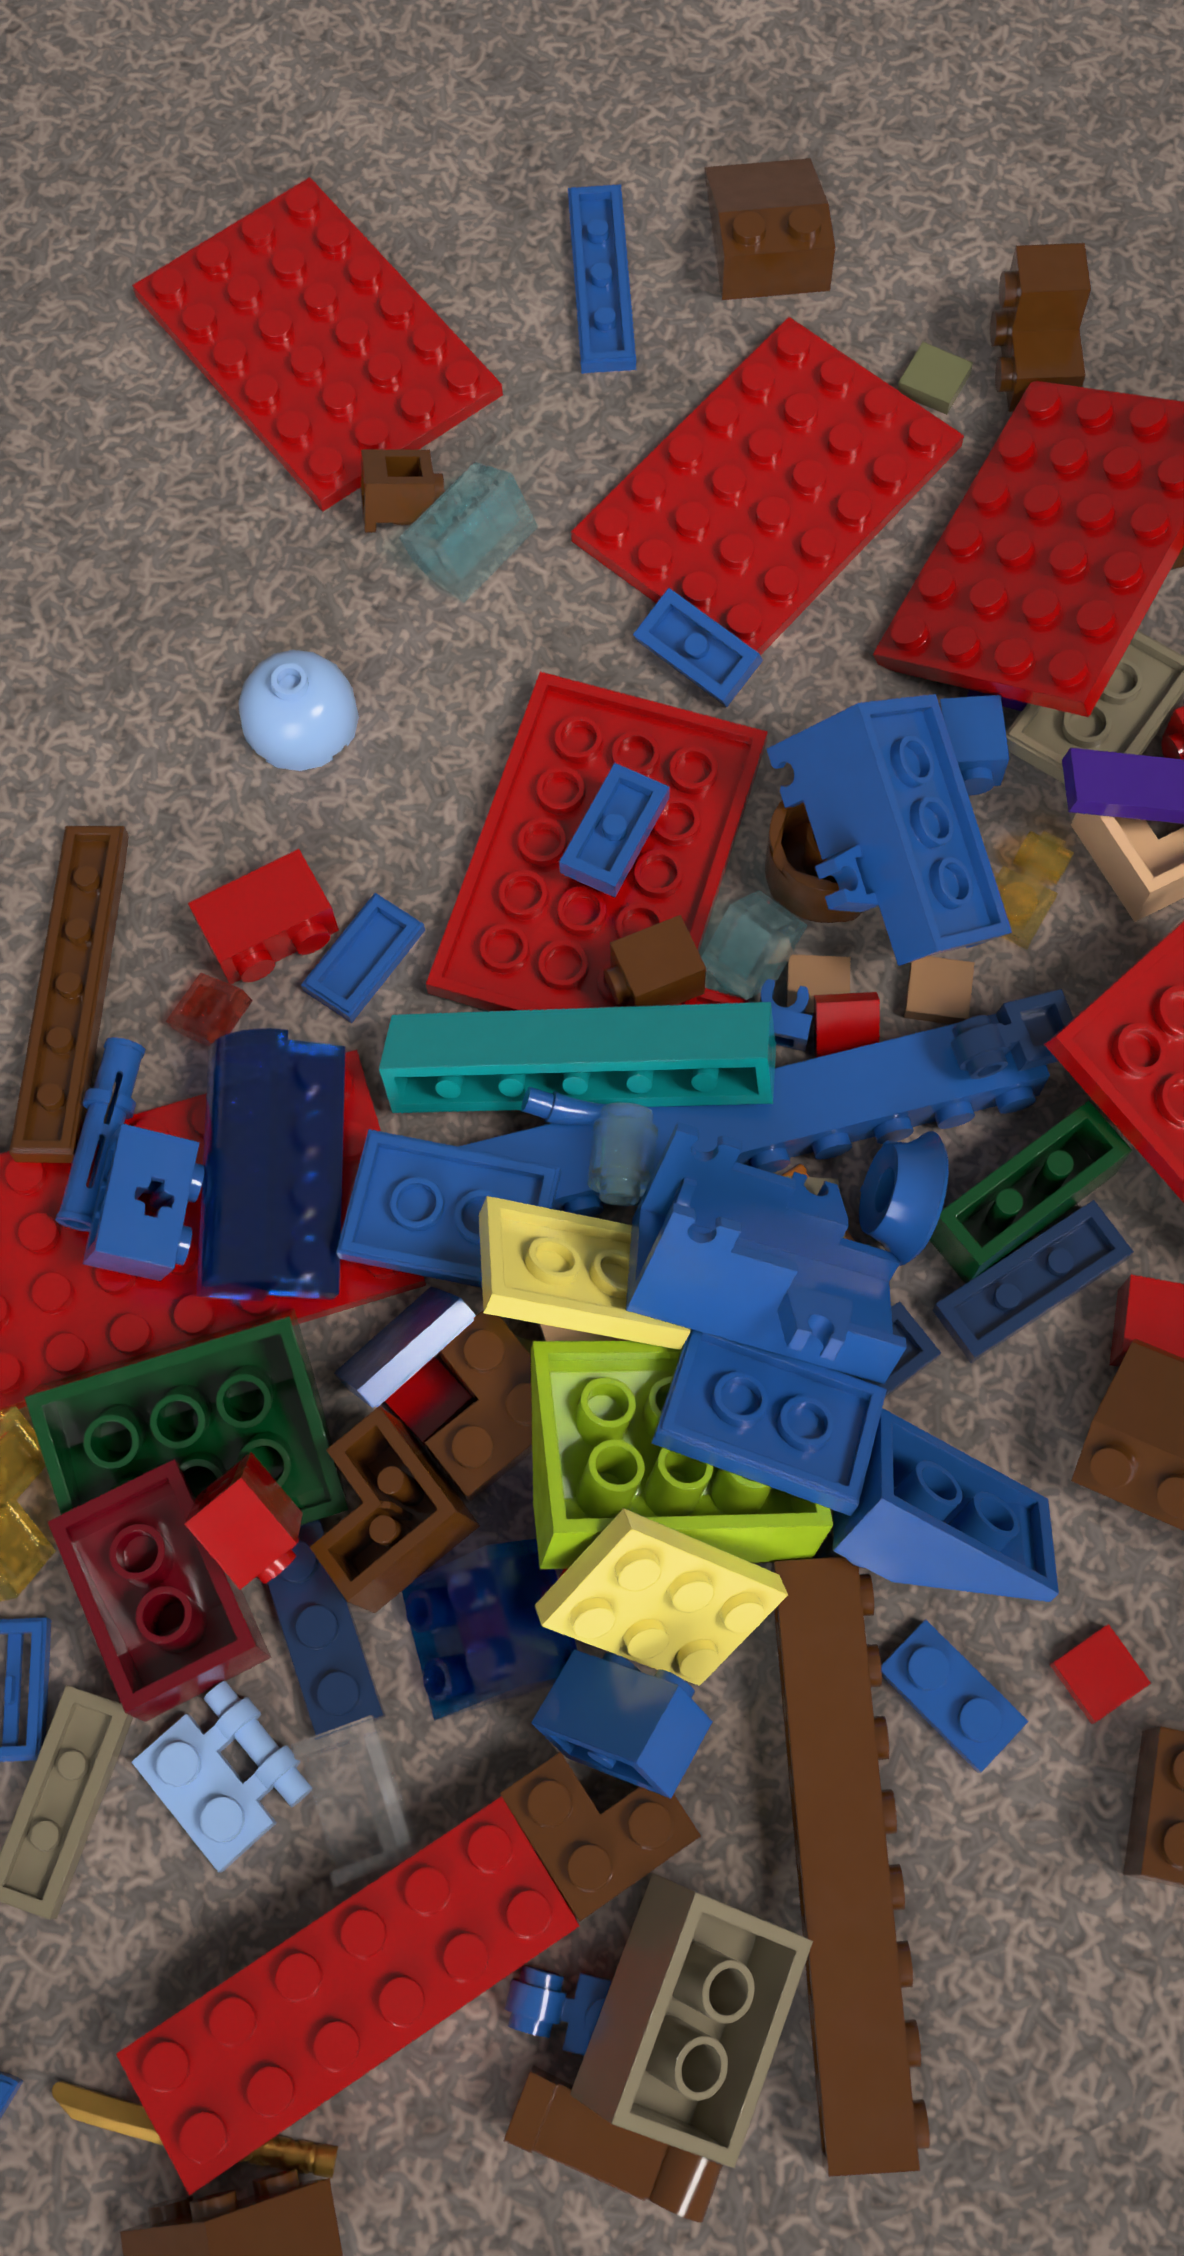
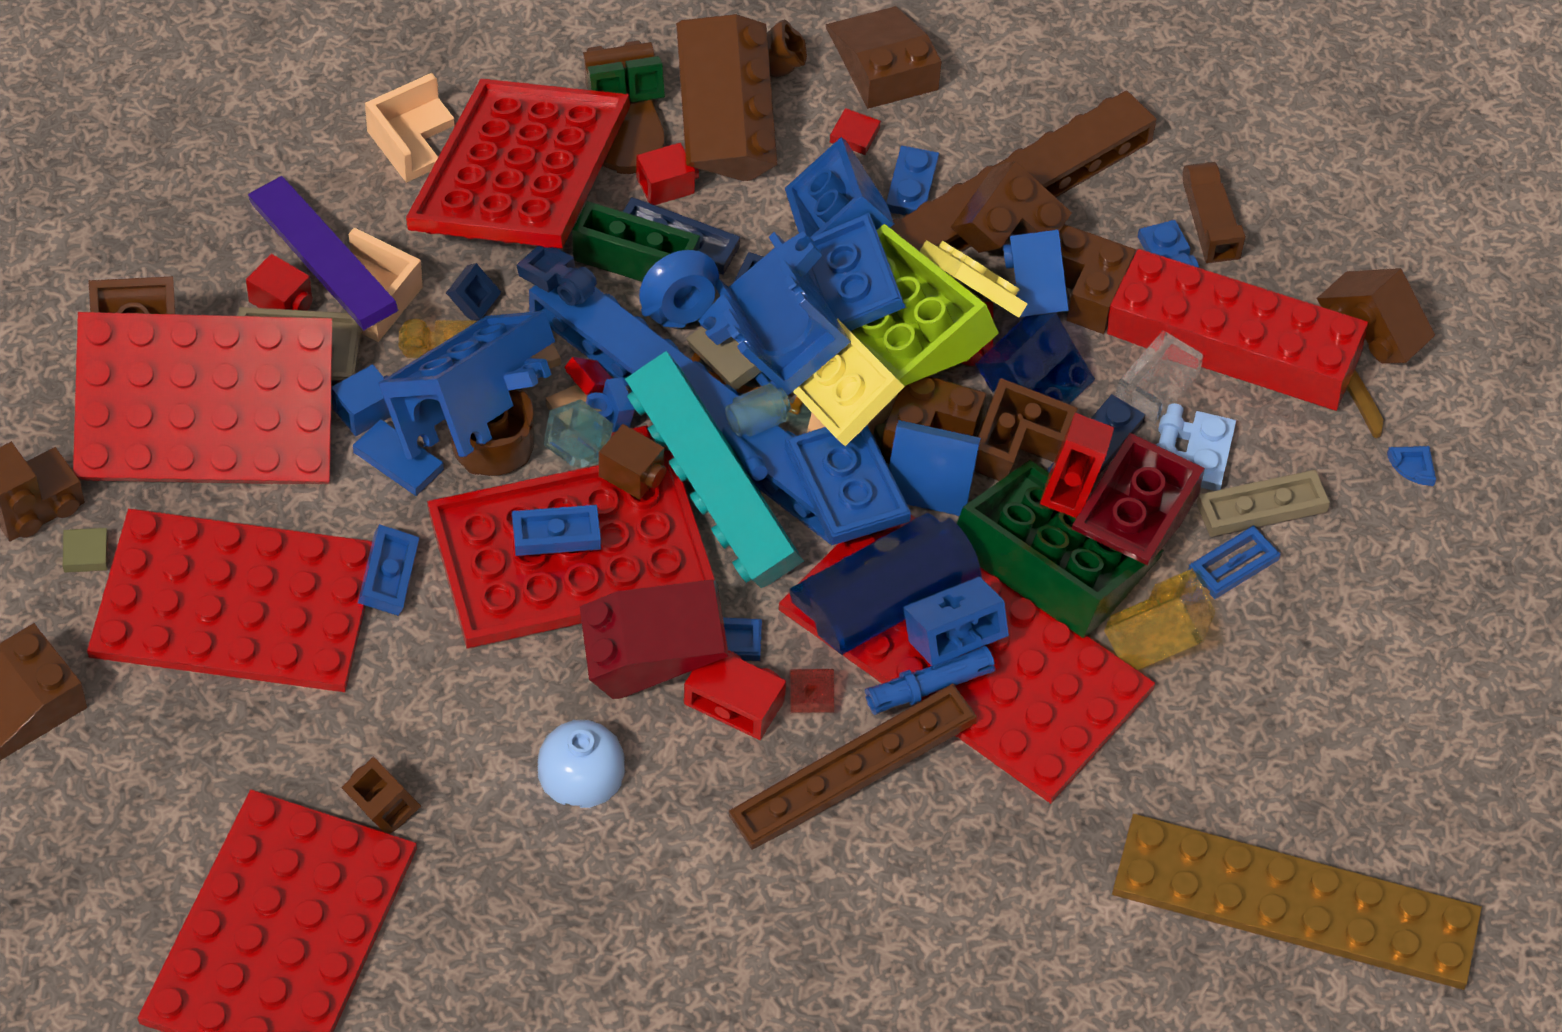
camera: 130 degrees left, 15 degrees down
(386, 846) = (652, 635): none -> dark red slope
(470, 530) = (384, 738): clear light blue brick -> none
(601, 279) = (113, 786): blue tile -> none
(691, 2021) = (1138, 193): dark tan brick -> none
(775, 1760) = (1007, 204): none -> reddish brown brick
(1077, 959) = (473, 292): none -> dark blue plate

